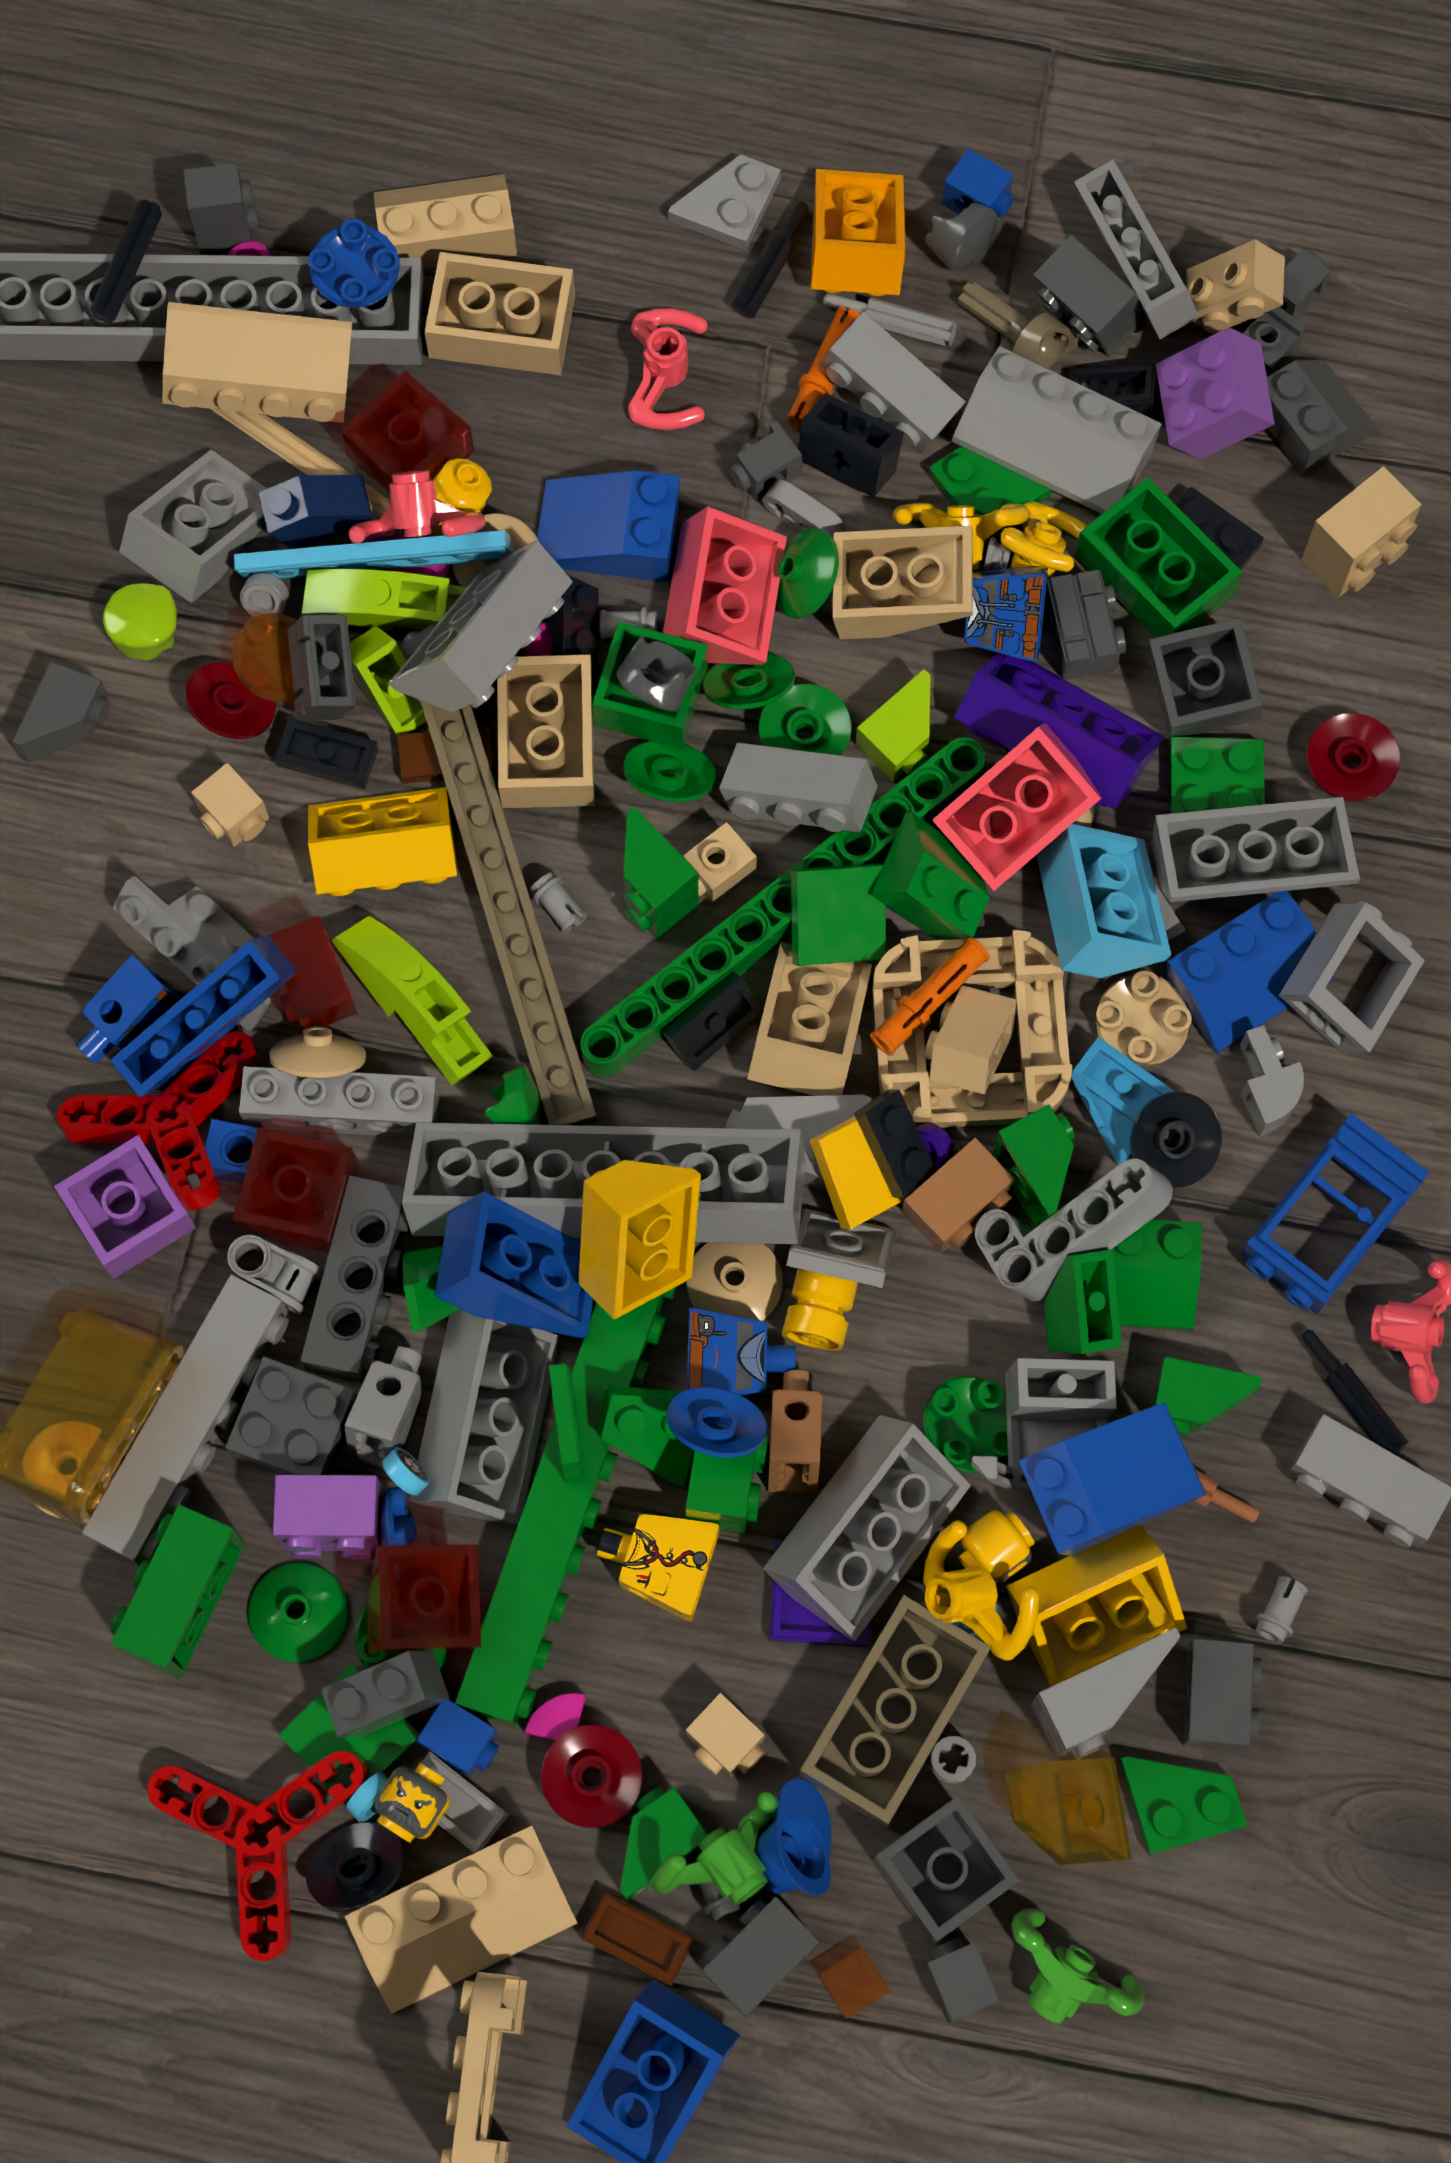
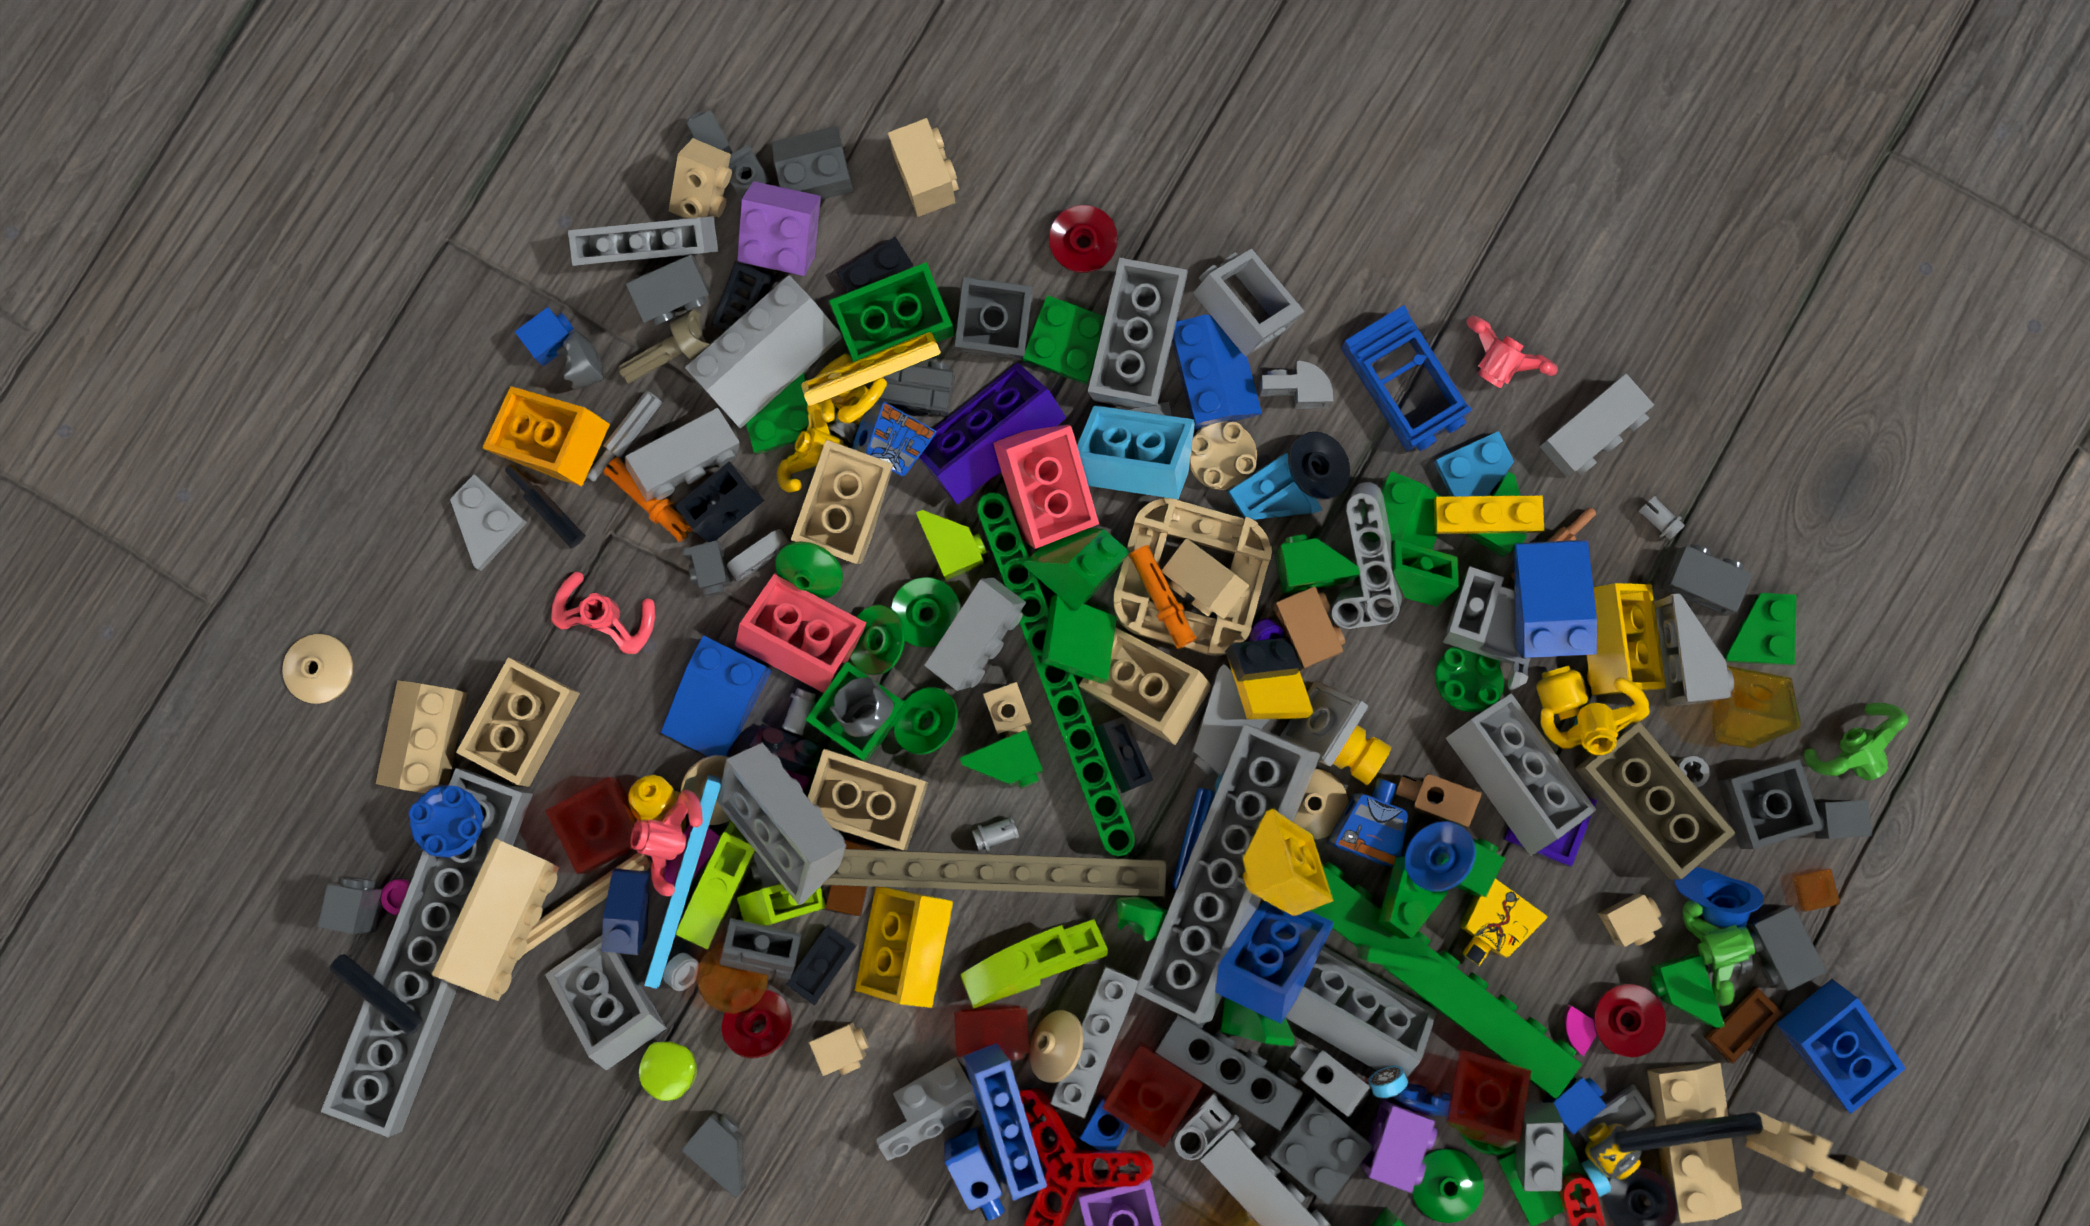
camera: 65 degrees left, 10 degrees up
(467, 1880) = (1688, 1132): none -> black axle
(492, 101) = (333, 671): none -> tan dish
(1080, 547) = (870, 368): none -> yellow tile
(1193, 1366) = (1488, 514): none -> yellow plate
(1248, 1342) = (1475, 467): none -> dark azure wing
(1356, 1398) = (1535, 413): black axle -> none

